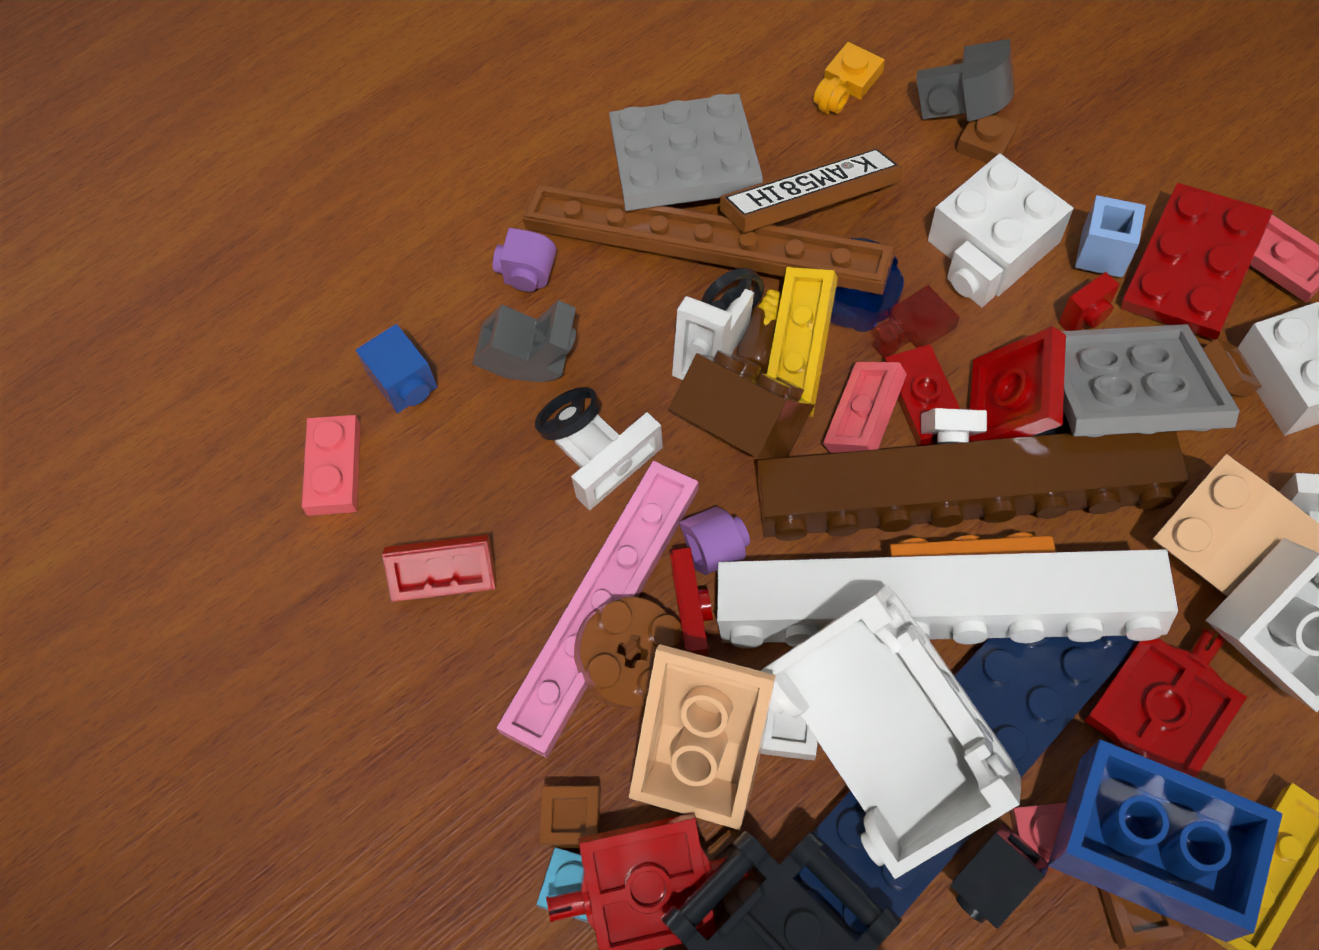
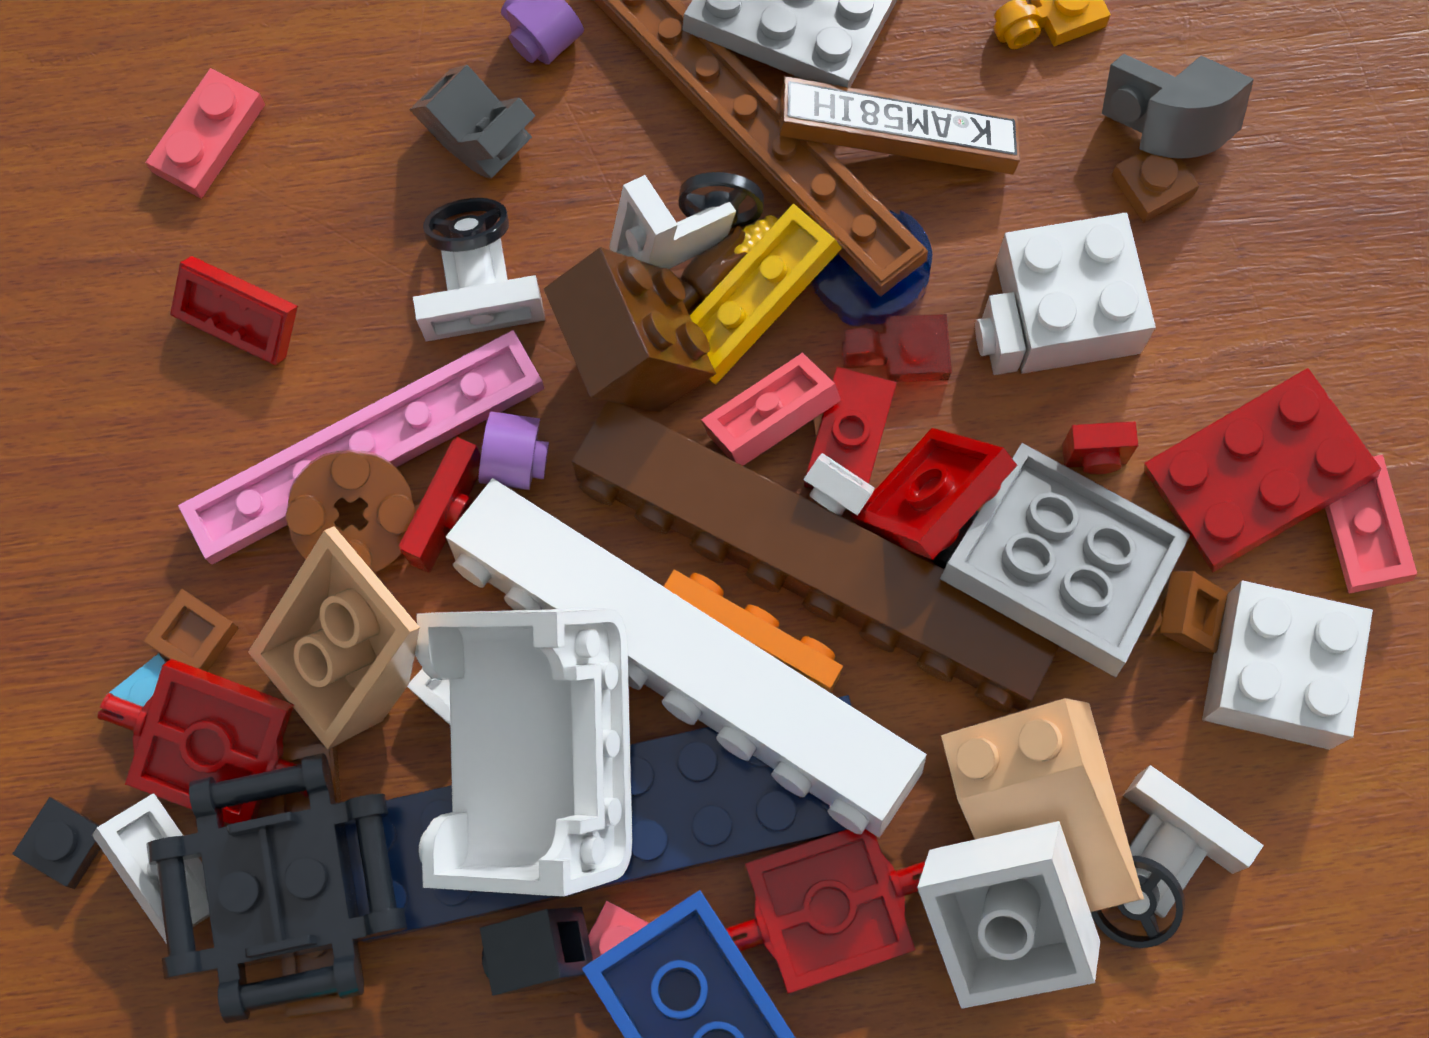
camera: 30 degrees right, 10 degrees up
(397, 368) = (330, 68): blue brick -> none
(1110, 236) = (1179, 383): light blue brick -> none

